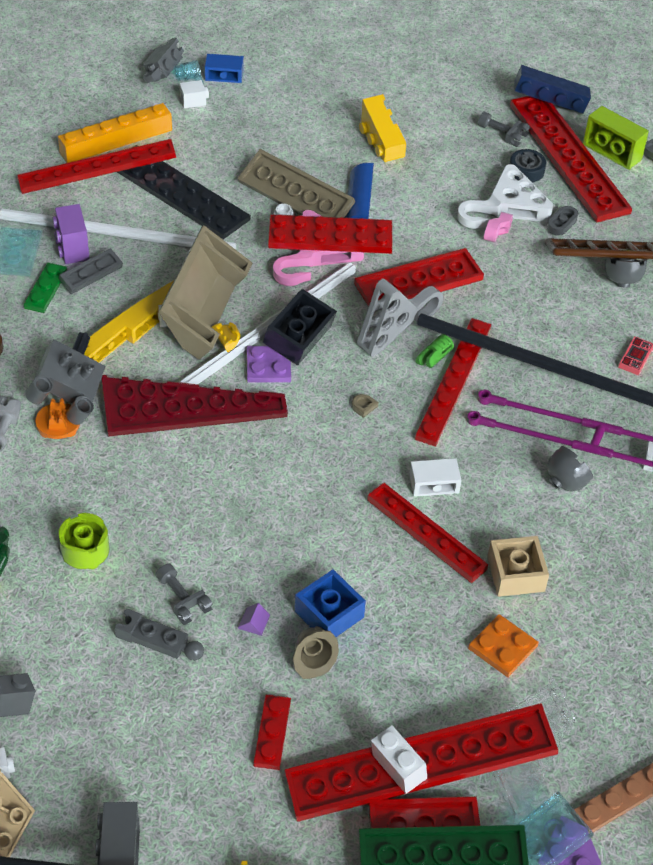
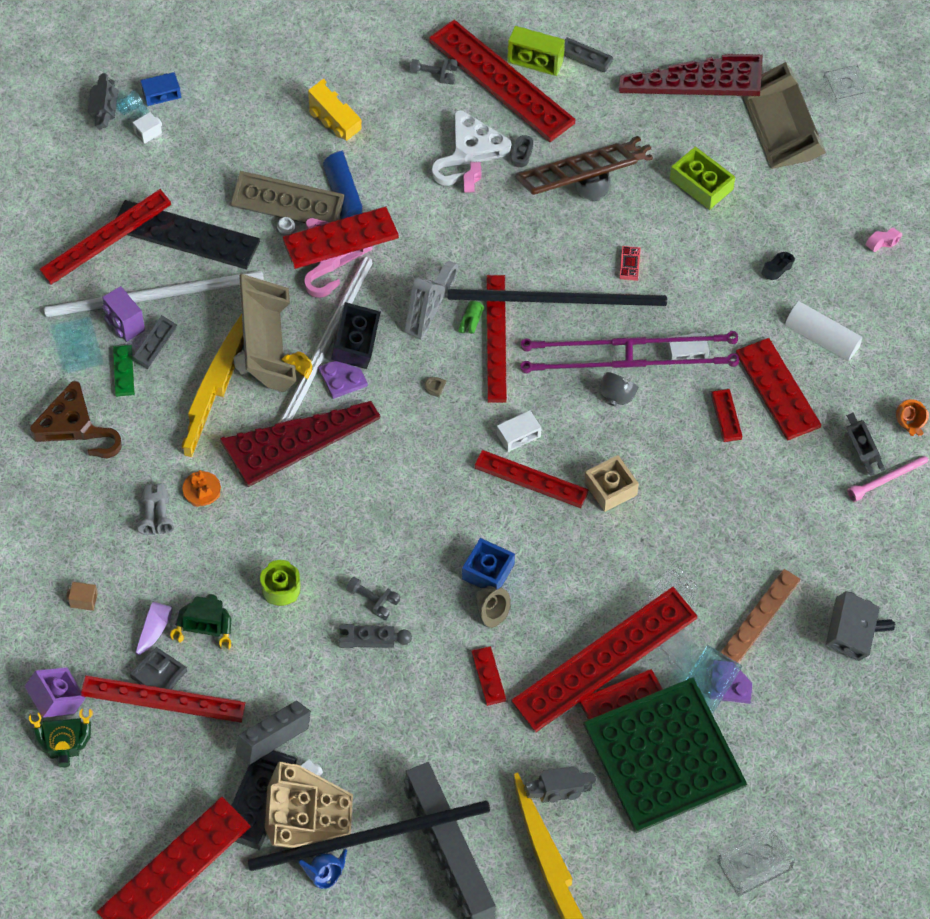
camera: 20 degrees left, 10 degrees up
(68, 376) = (197, 449): dark grey piece -> none
(115, 133) = (101, 195): light orange brick -> none
(254, 619) = (435, 596): medium lavender slope -> none
(399, 759) = (591, 663): white brick -> none
(440, 271) = (428, 252): red plate -> none
(503, 645) = (624, 549): orange plate -> none
(530, 163) = (472, 102): black wheel -> none
(552, 89) = (462, 15): dark blue brick -> none

